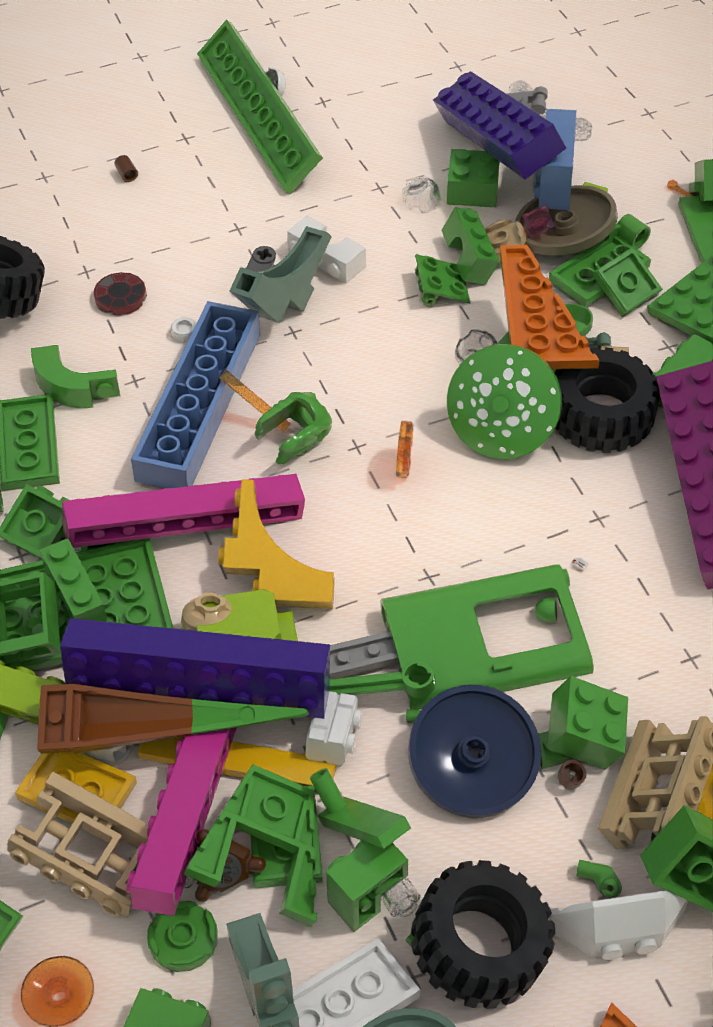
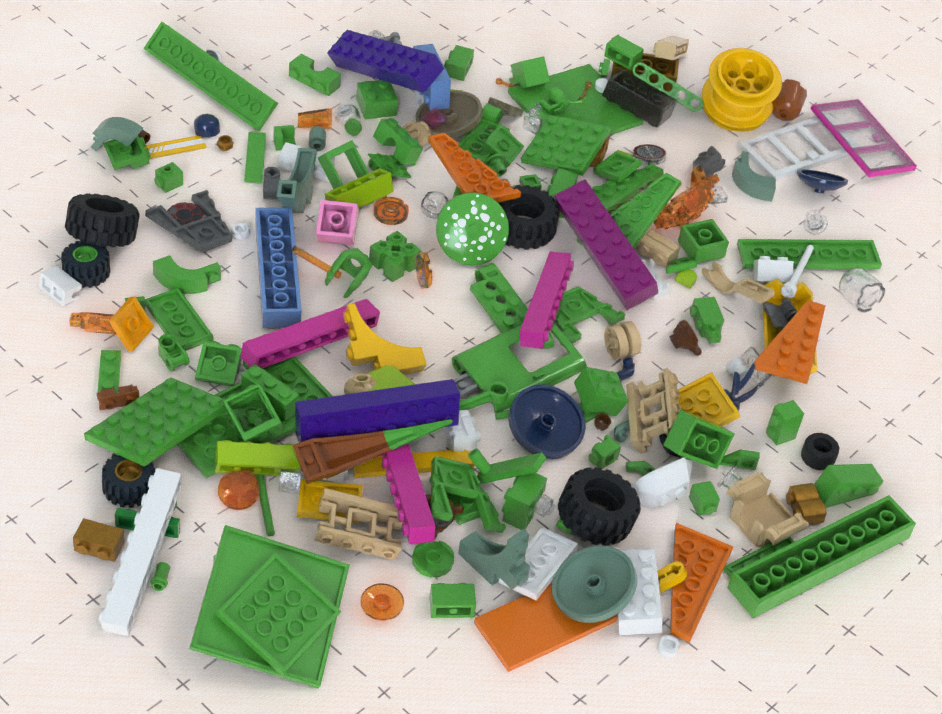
camera: 30 degrees left, 5 degrees down
(28, 737) = (290, 481): none -> clear tile
(83, 154) = (116, 129): none -> sand green arch
(93, 187) = (133, 155): none -> bright green plate
(126, 233) = (168, 177): none -> bright green brick
(128, 322) = (200, 234): none -> dark grey wing
(159, 193) = (176, 146): none -> yellow sticker
(220, 172) = (206, 125): none -> dark blue hair
(231, 200) = (225, 143): none -> pearl gold plate
(262, 226) = (255, 157): none -> bright green tile
(315, 347) = (337, 222): none -> bright pink brick
(316, 205) = (282, 135): none -> bright green panel
(360, 218) = (317, 138): none -> sand green brick
(361, 242) = (353, 156): none -> bright green window
(372, 190) = (313, 118): none -> clear orange slope
(374, 309) = (363, 189): none -> lime brick
(376, 415) = (394, 255): none -> bright green brick
(393, 120) = (323, 81): none -> bright green arch
(413, 357) = (387, 217): none -> clear orange tile
(419, 211) = (353, 127): none -> bright green tile
(506, 482) = (491, 276): none -> bright green hinge
(547, 833) = (605, 452): none -> bright green brick
(566, 544) = (546, 300): none -> dark pink brick
(595, 801) = (620, 431): none -> sand green arm
(602, 308) = (497, 162): none -> bright green piece
(622, 147) = (459, 62): none -> bright green brick
(622, 564) = (579, 306): none -> bright green wing
(644, 347) = (531, 180): none -> bright green plate
(658, 695) = (627, 370): none -> dark blue arm
(660, 225) = (511, 110): none -> dark tan wing
(667, 642) = (622, 340): none -> tan wheel
(684, 970) = (704, 498): none -> bright green brick
(689, 250) = (531, 120): none -> clear plate

